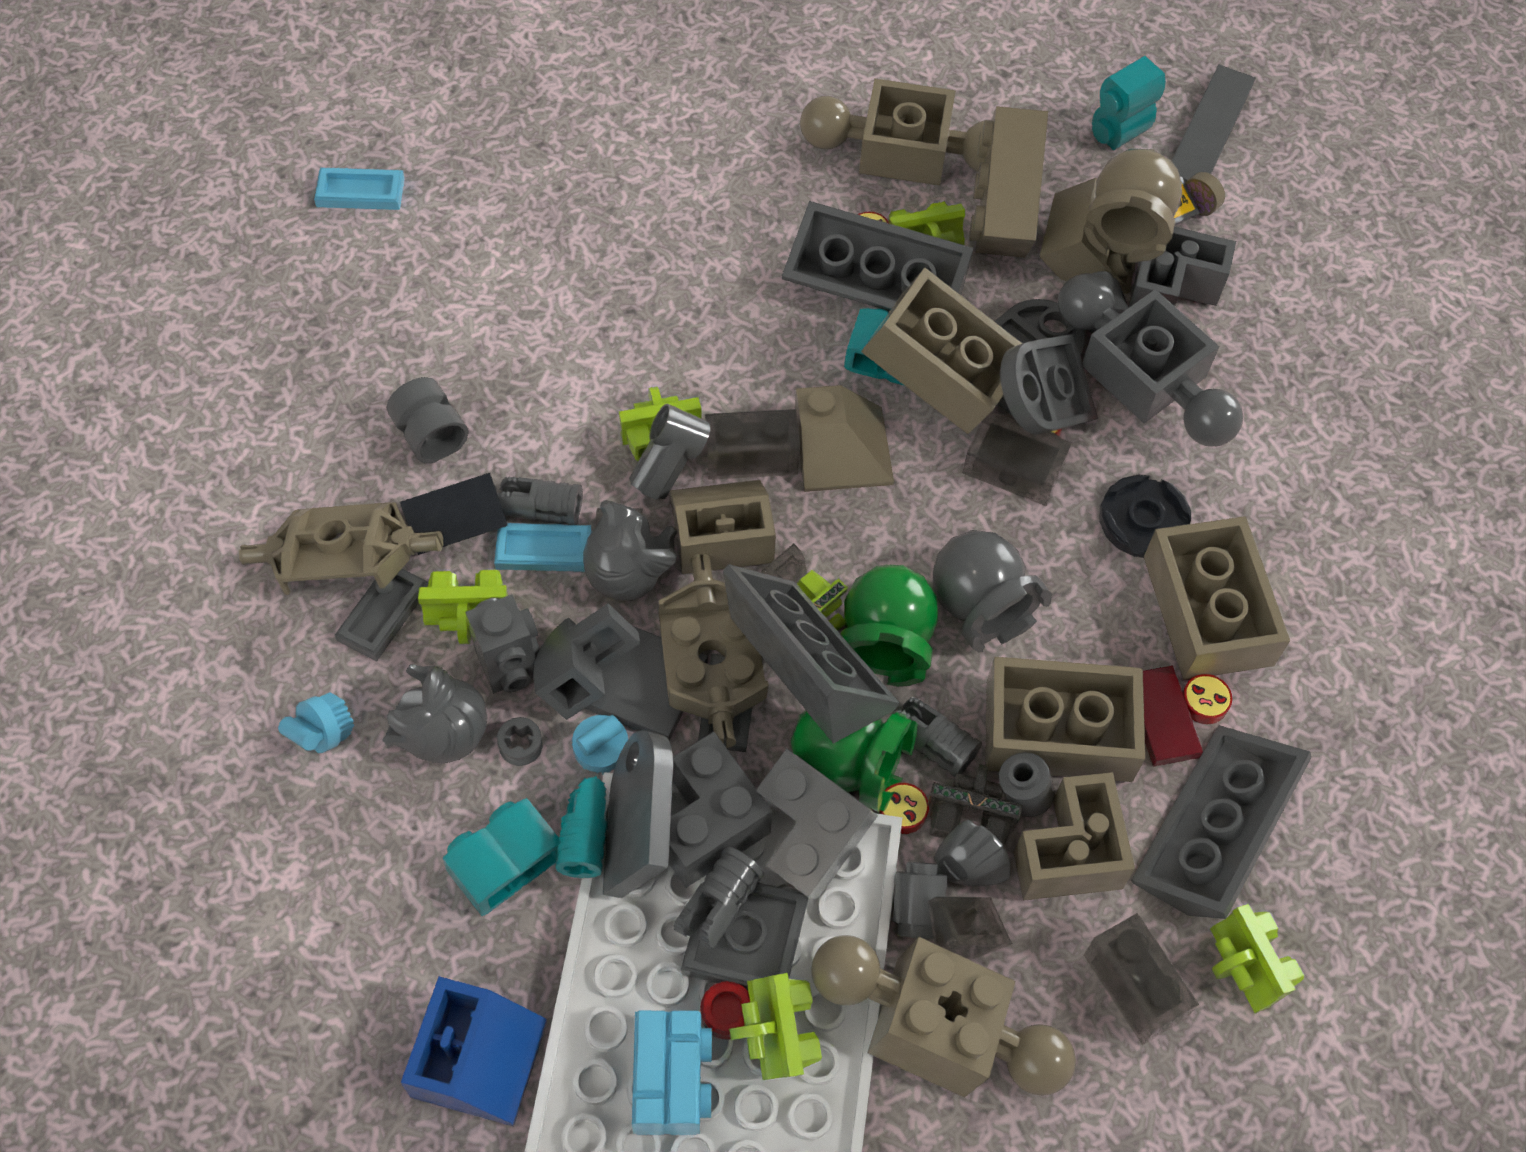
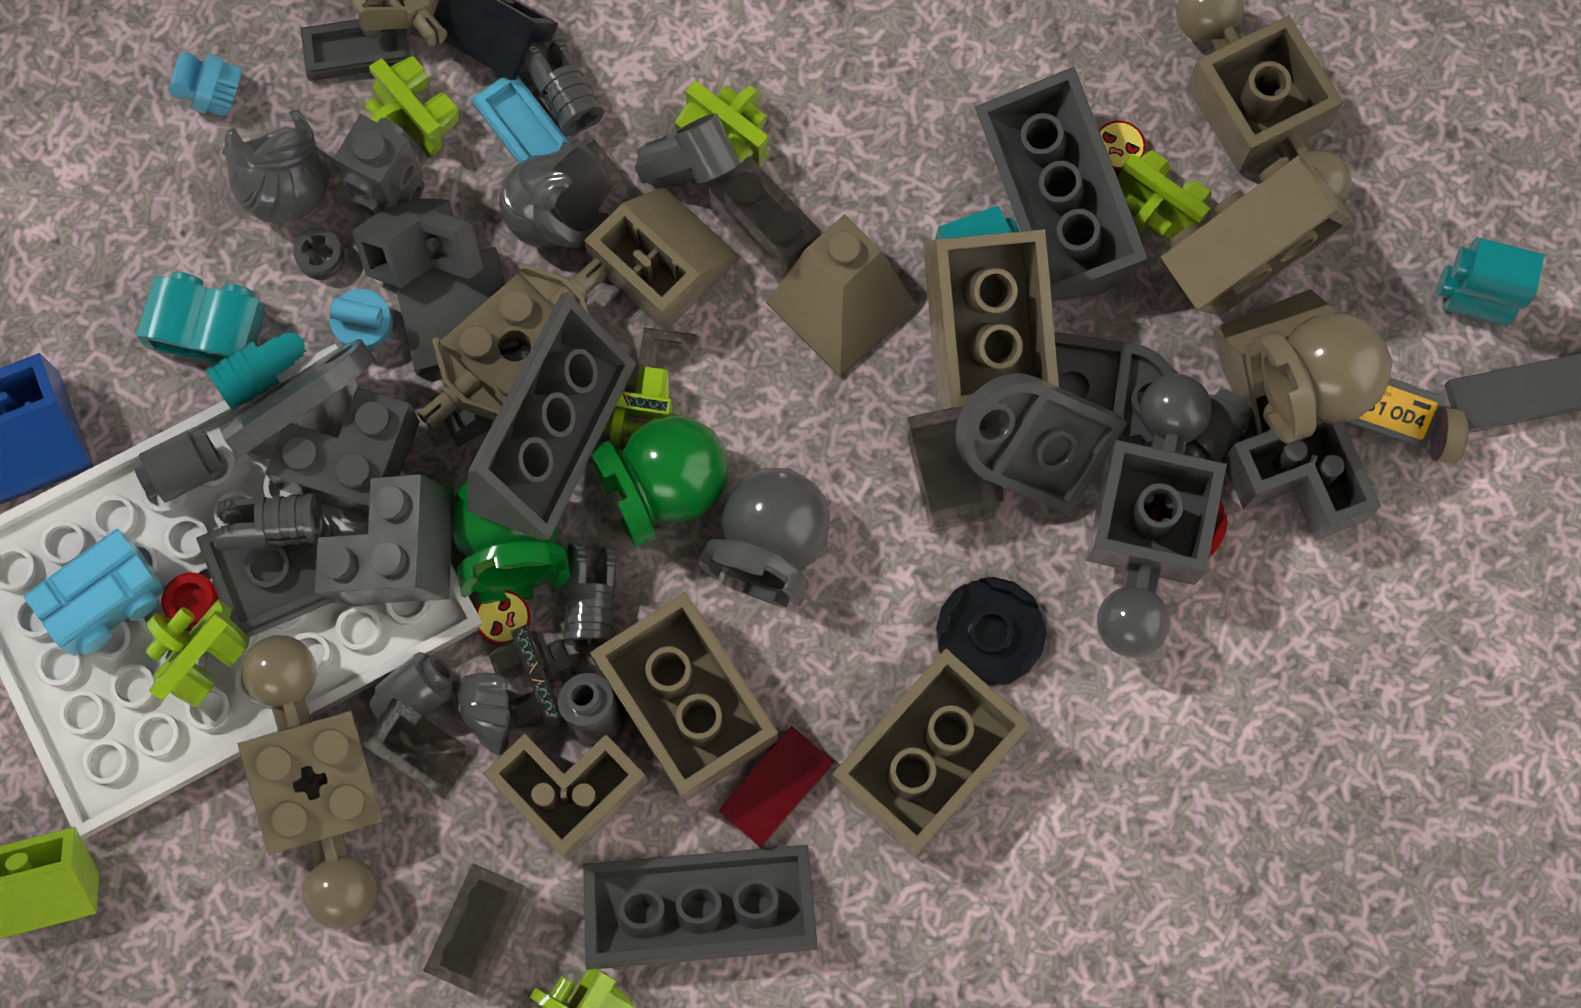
camera: 55 degrees right, 15 degrees up
(614, 939) = (178, 465): none -> dark grey brick
(1207, 698) = (825, 816): tile -> none

